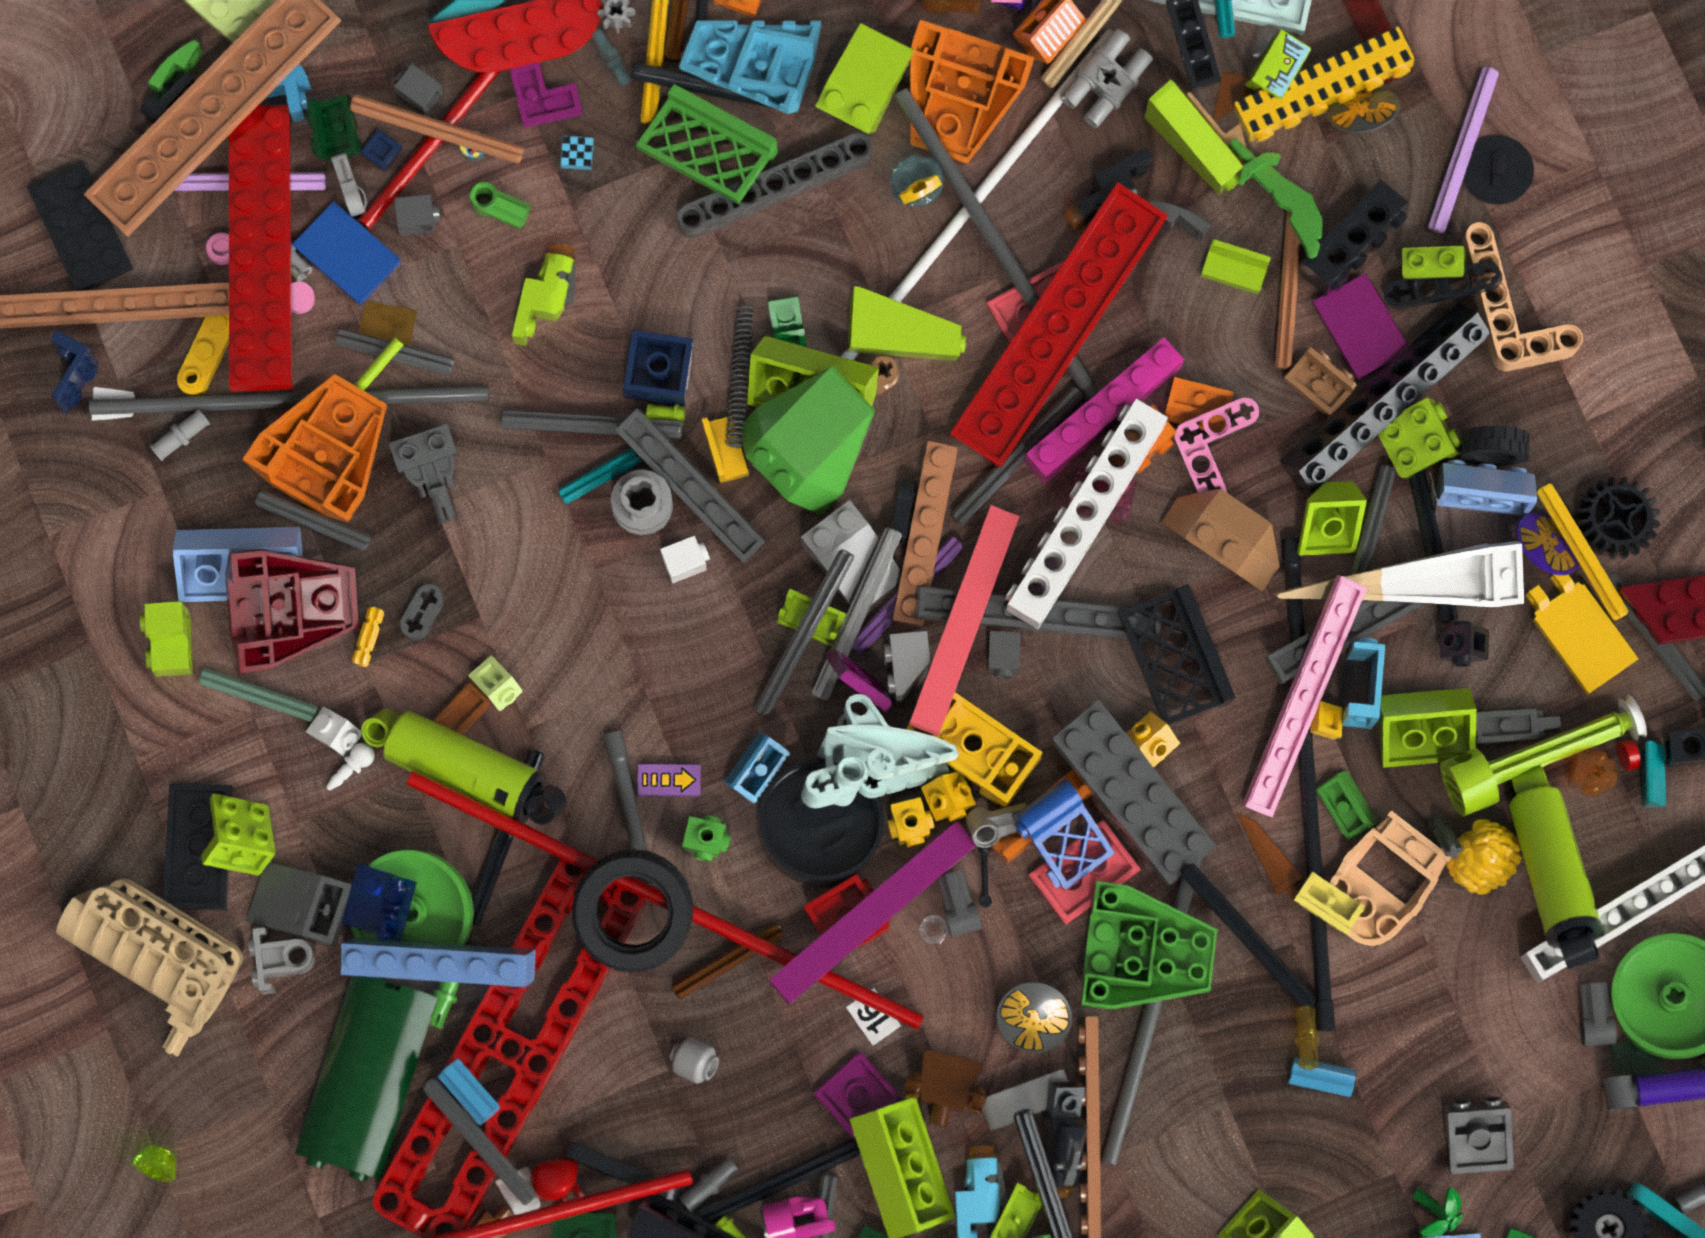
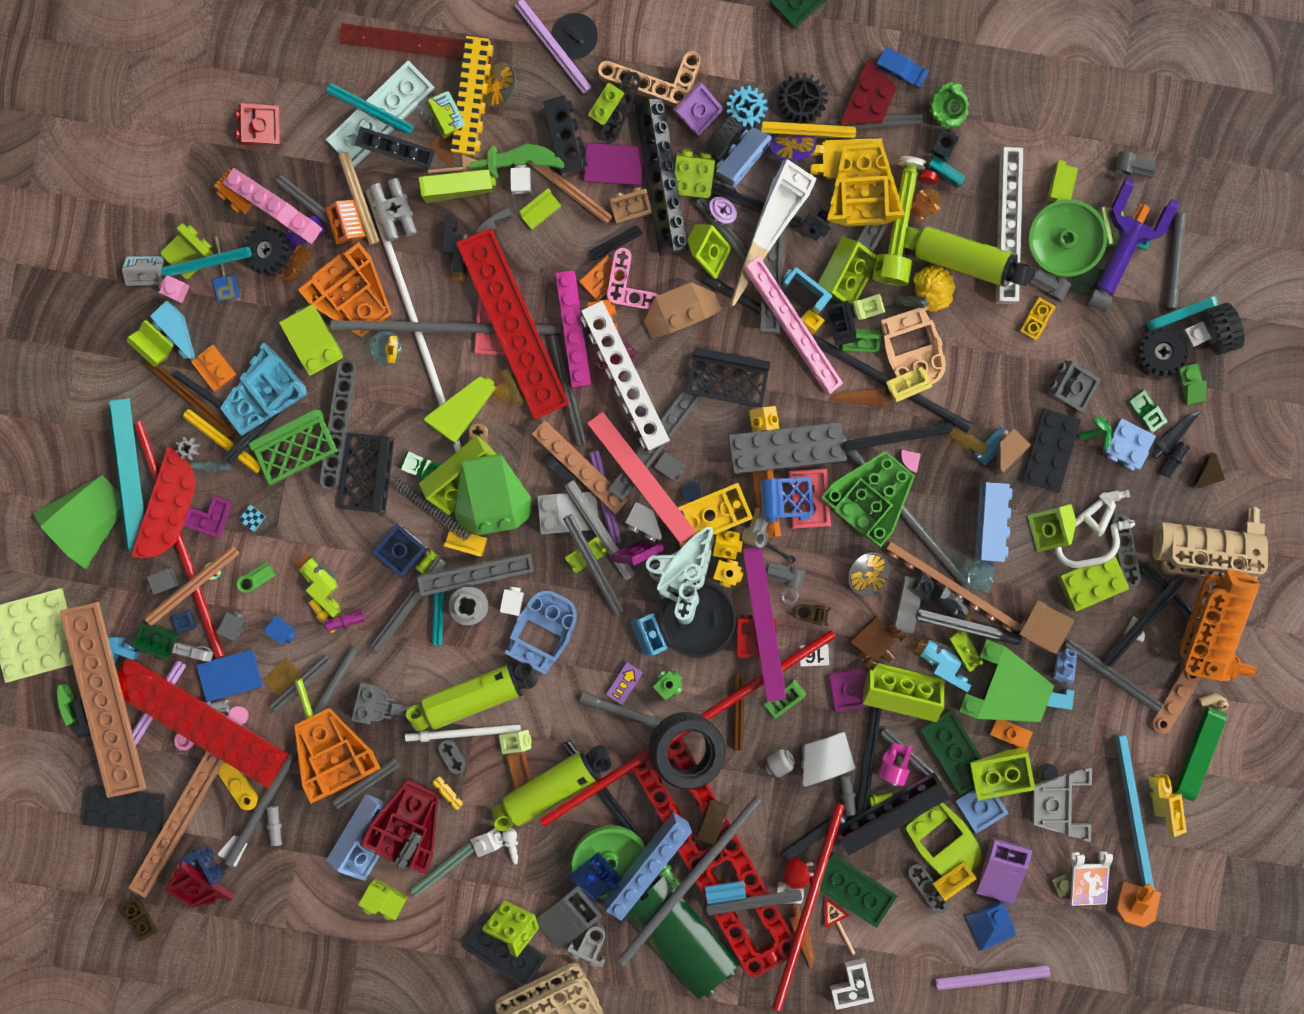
camera: 55 degrees left, 10 degrees up
(31, 378) = (193, 887): none -> dark red wing
(258, 628) = (408, 850): none -> dark grey axle
(427, 559) = (425, 735): none -> white bar
(450, 280) = (280, 630): none -> blue brick
(454, 1032) = (689, 880): none -> dark grey piece
(504, 323) = (321, 614): none -> yellow bar
(516, 355) = (344, 621): none -> magenta pin
(521, 584) = (472, 696): none -> lime piece
(555, 1012) = (712, 822): none -> dark brown slope
(701, 617) = (551, 613): none -> medium blue slope
(738, 285) = (381, 477): none -> black fence
(740, 1120) = (826, 759): none -> slope
(812, 1021) = (795, 699): none -> bright green slope
(930, 977) = (815, 614): none -> dark brown piece
(967, 377) = (507, 390): none -> clear yellow tile
(991, 703) = (691, 491): none -> dark blue tile
(1130, 1171) = (981, 576): none -> clear light blue hair
(1216, 1139) = (992, 522): none -> light blue brick
(1228, 977) = (910, 460): none -> bright pink tile
(1257, 218) = (520, 180): none -> white brick
(1259, 394) = (615, 242): none -> black axle
(1331, 1100) = (1009, 449): none -> medium nougat slope
(1351, 762) = (842, 323): none -> black hinge
(1369, 1164) = (1051, 450): none -> black plate
(1398, 785) = (868, 307): none -> yellowish green bracket
(1402, 496) = (718, 204): none -> lavender gear
(1510, 389) = (698, 109): none -> medium lavender tile
(1538, 1028) = (1037, 318): none -> yellow slope
(1553, 674) = (865, 188): none -> yellow wedge
(1566, 459) = (753, 104): none -> medium azure gear

